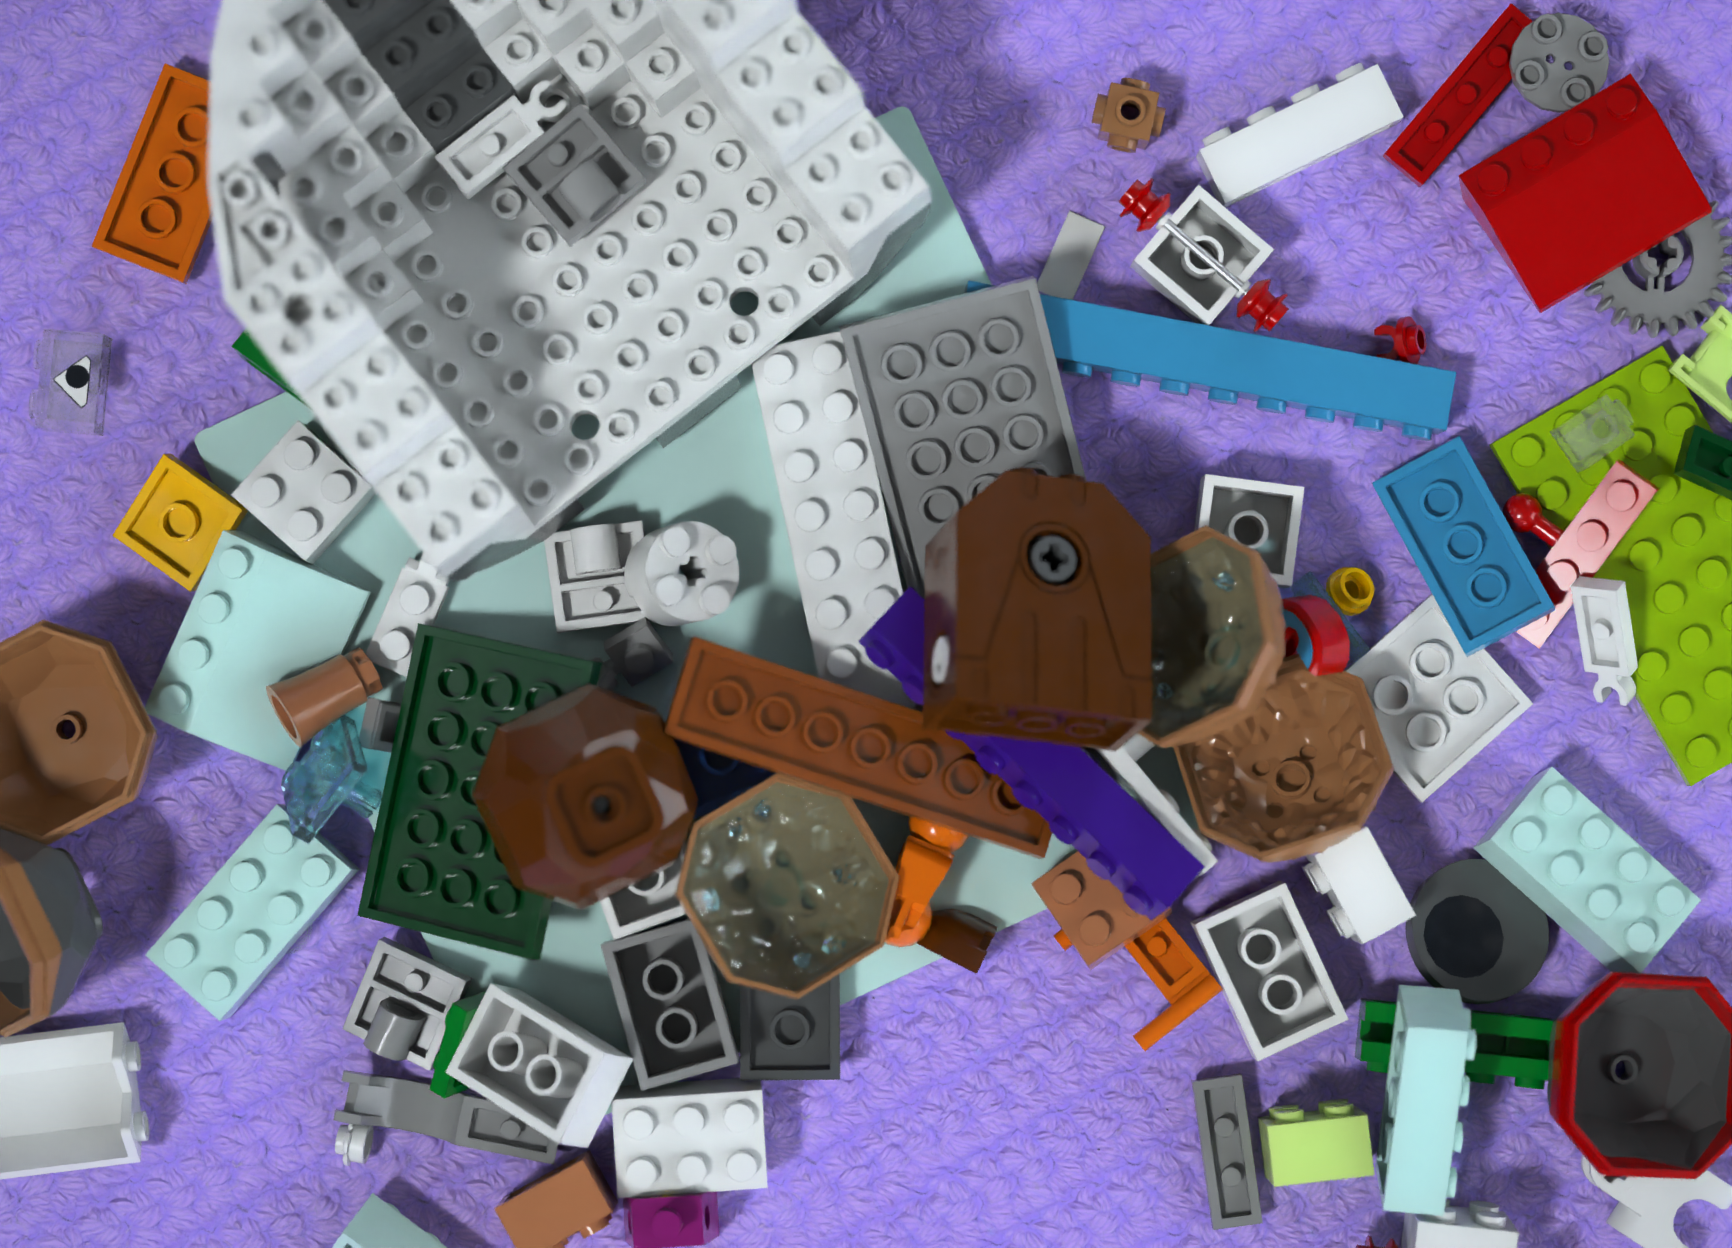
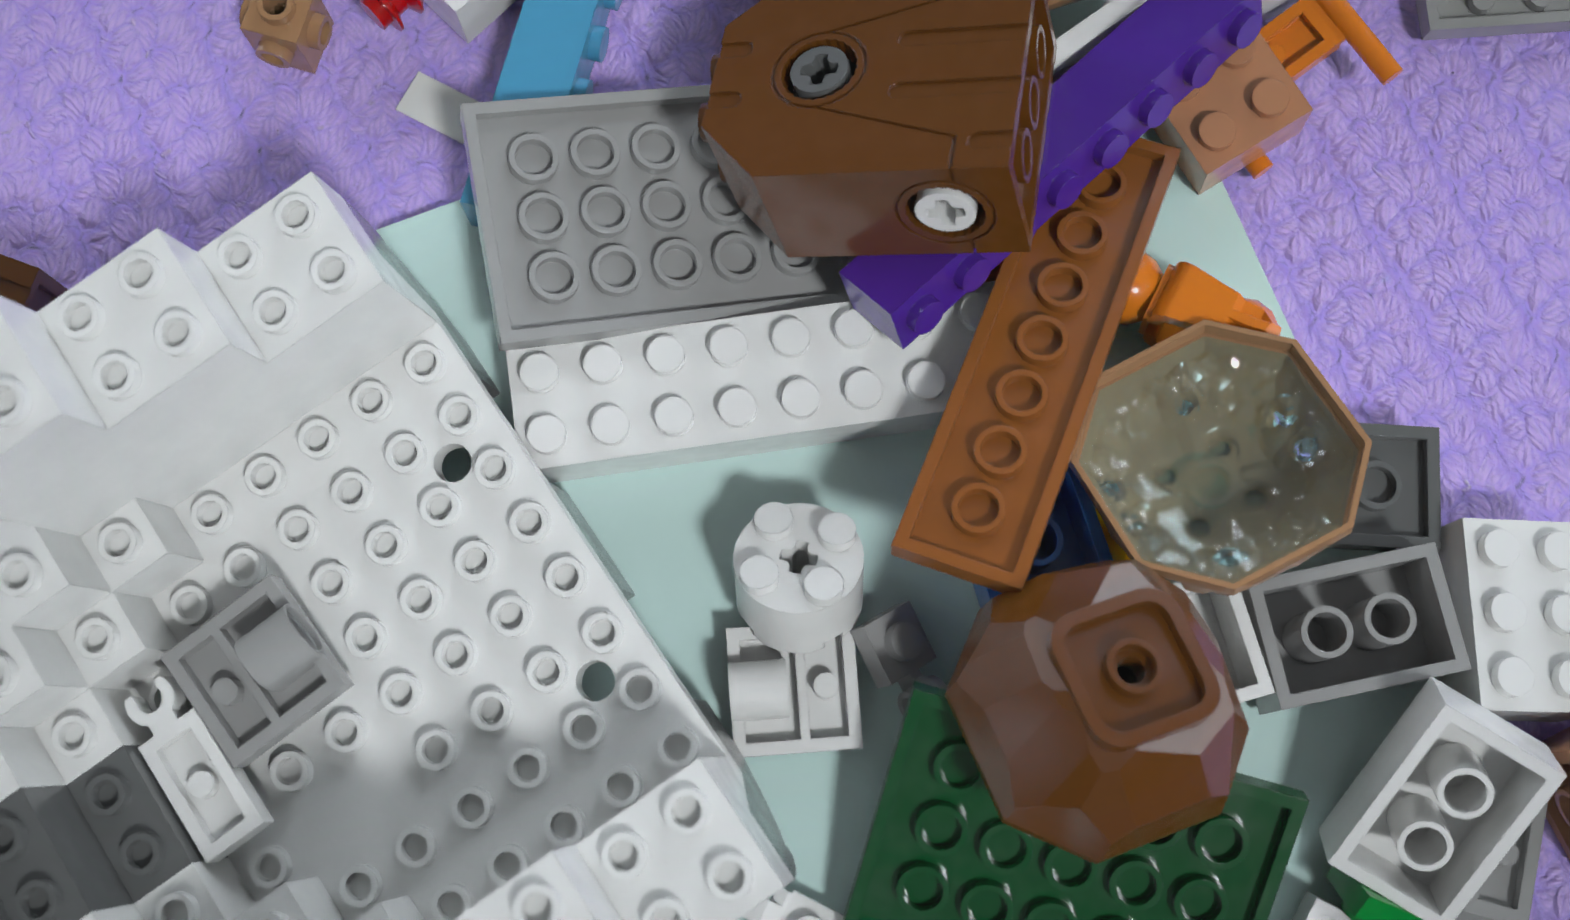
camera: 90 degrees left, 10 degrees down
(959, 937) = (1267, 270): reddish brown brick -> none

